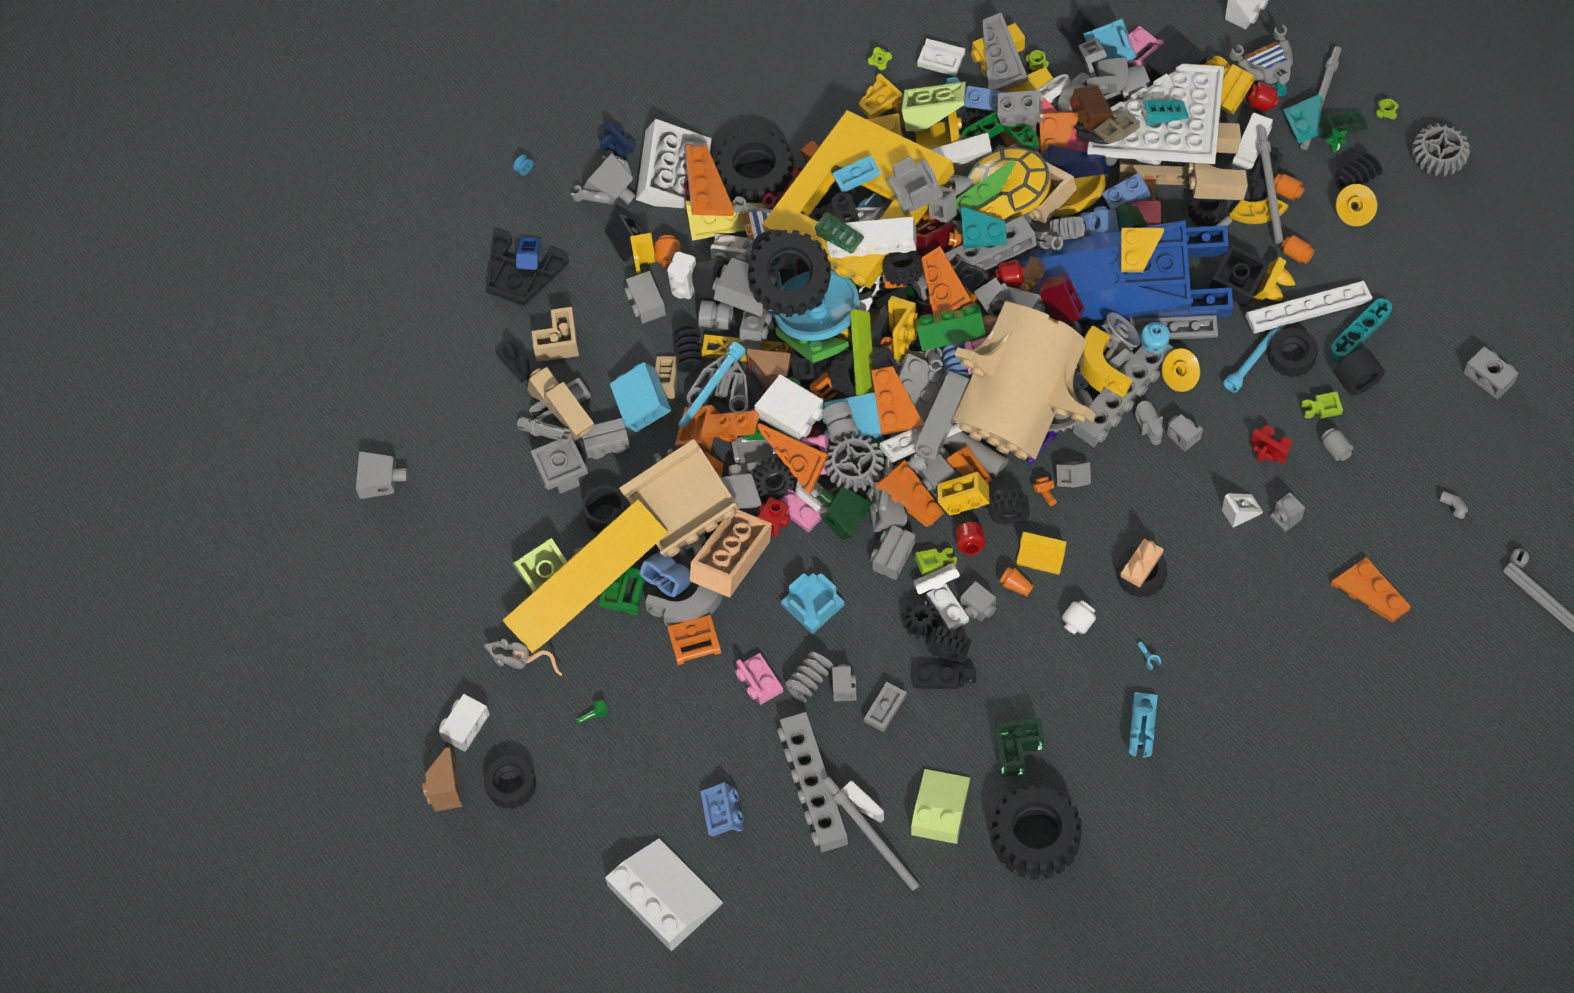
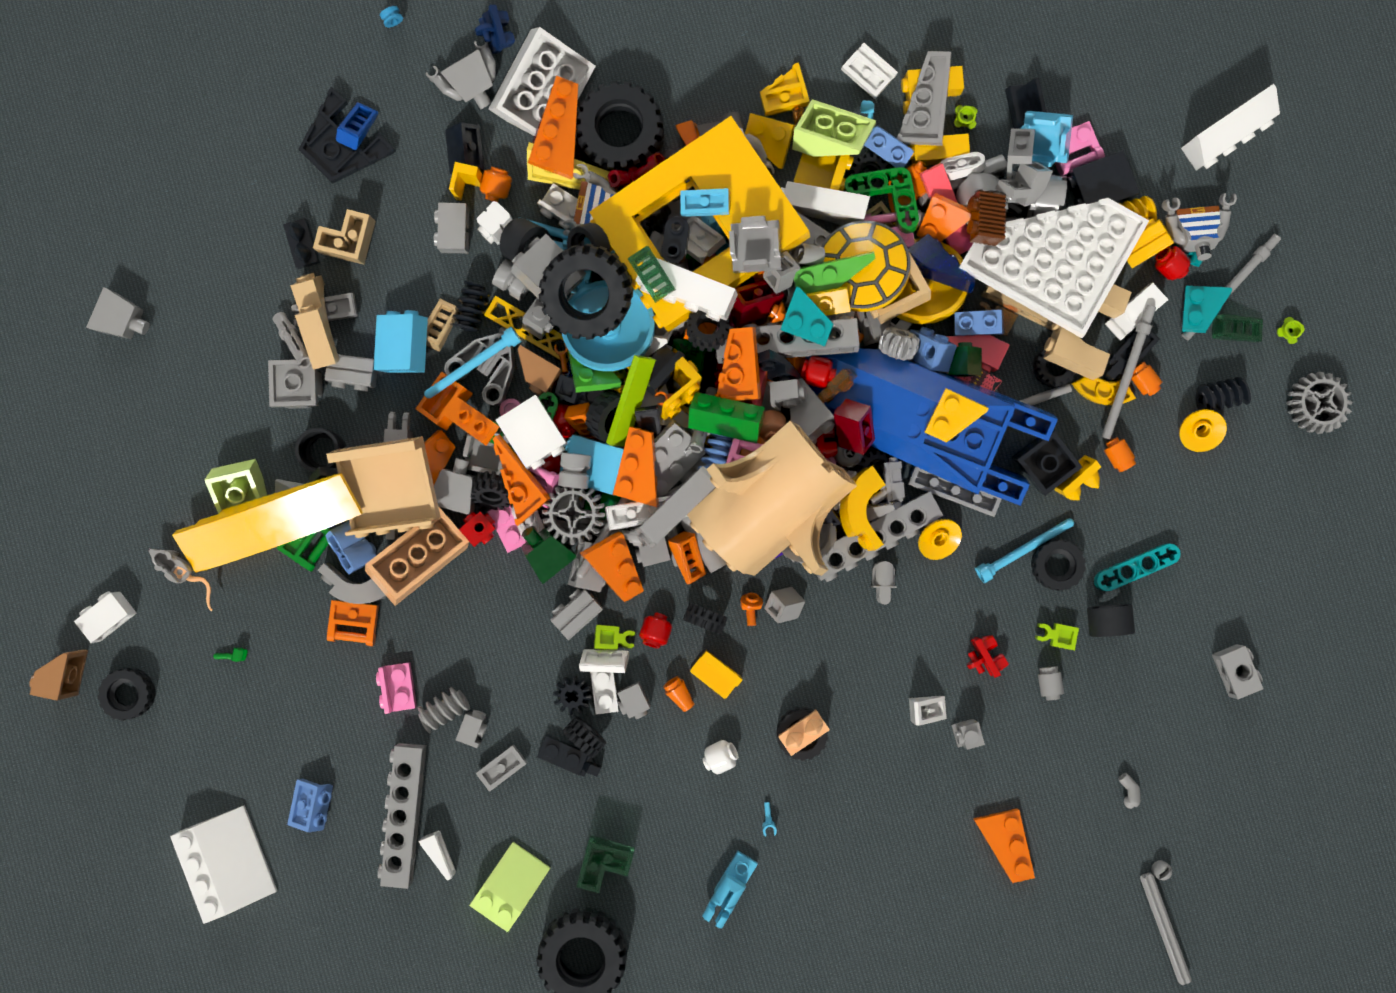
camera: 15 degrees right, 25 degrees up
(812, 600) = (479, 631): medium azure panel -> none
(841, 798) = (416, 850): light grey bar -> none
(878, 52) = (808, 40): lime plate -> none
(963, 493) = (666, 586): yellow brick -> none
(1020, 108) = (915, 183): light grey brick -> none
(1046, 240) = (870, 347): light grey pin -> none
(1091, 137) = (971, 253): black helmet -> none
(1117, 129) = (1002, 255): dark tan slope -> none
(1123, 330) = (900, 484): light grey dish -> none
(1155, 338) = (920, 504): medium azure head -> none
(1157, 111) = (1056, 244): teal slope -> none
(1183, 432) = (911, 605): light grey brick -> none
(1308, 307) = (1098, 522): white tile -> none
(1337, 140) = (1221, 346): green plant -> none

